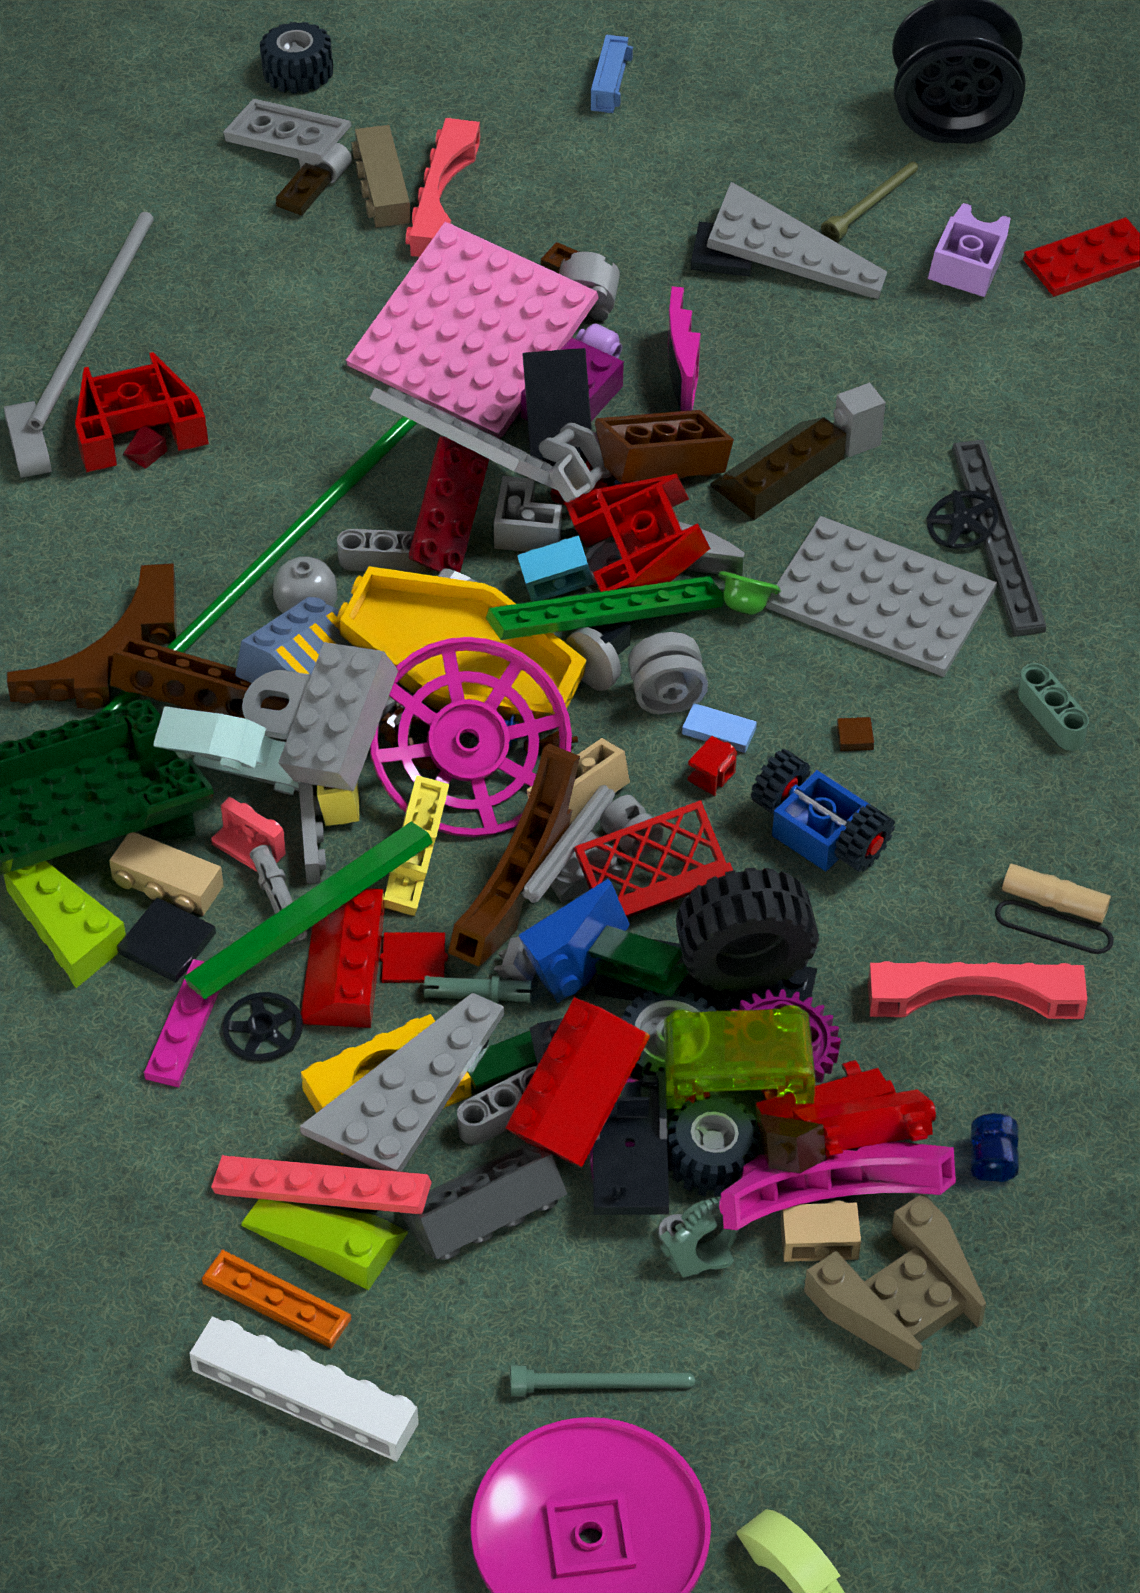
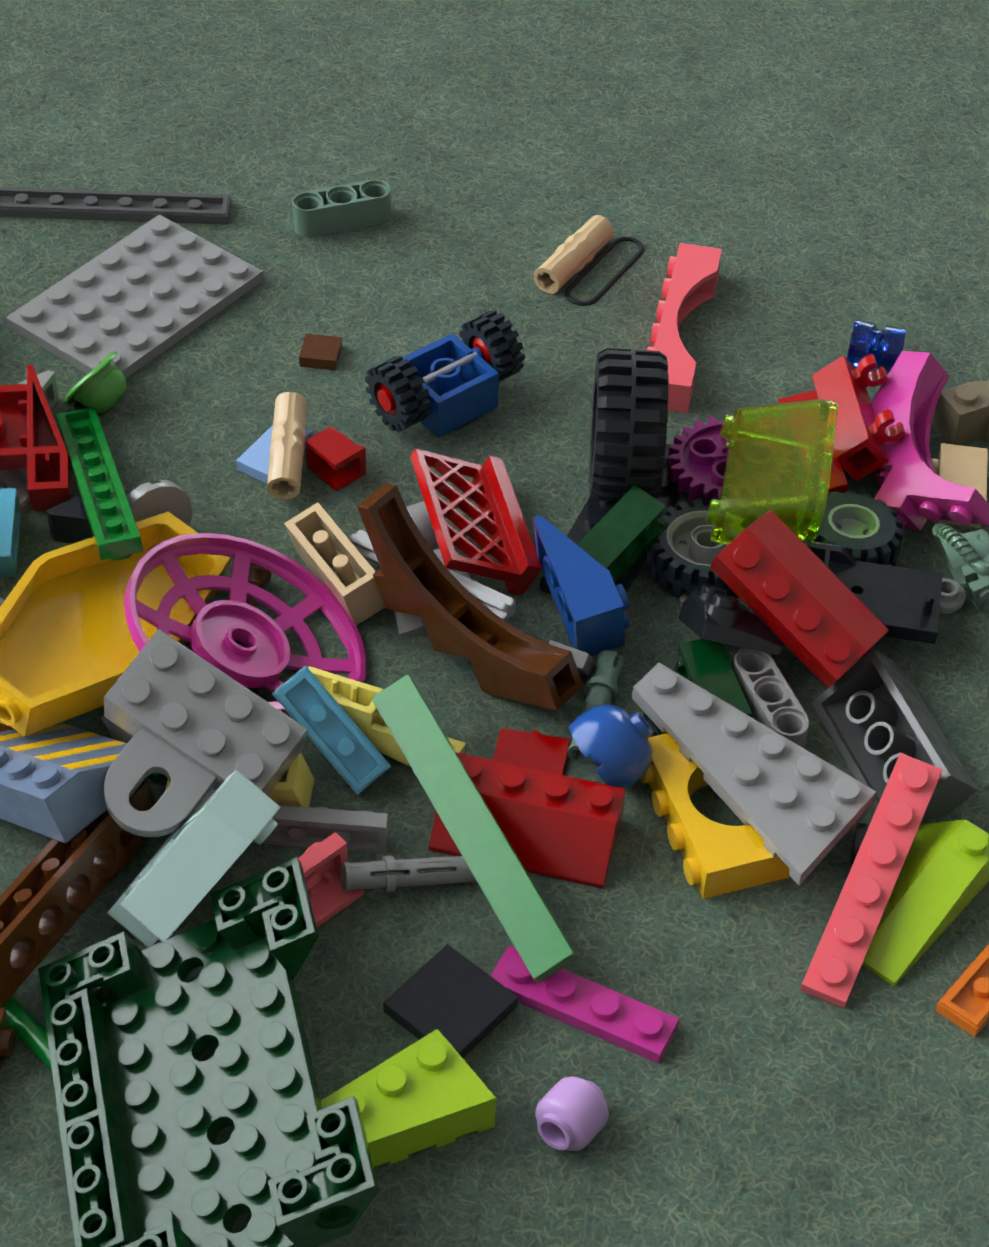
camera: 80 degrees left, 5 degrees down
(80, 1022) = (571, 1114): none -> lavender head
(166, 873) = (350, 985): tan brick -> none
(262, 1026) = (605, 924): black wheel -> none
(390, 804) = (331, 730): none -> medium azure tile
(407, 987) = (614, 743): none -> blue cylinder
(667, 673) = (204, 458): light grey wheel -> none
(701, 726) = (287, 446): none -> tan axle
(791, 1143) = (886, 460): dark brown slope -> none
(962, 519) = (60, 219): black wheel -> none

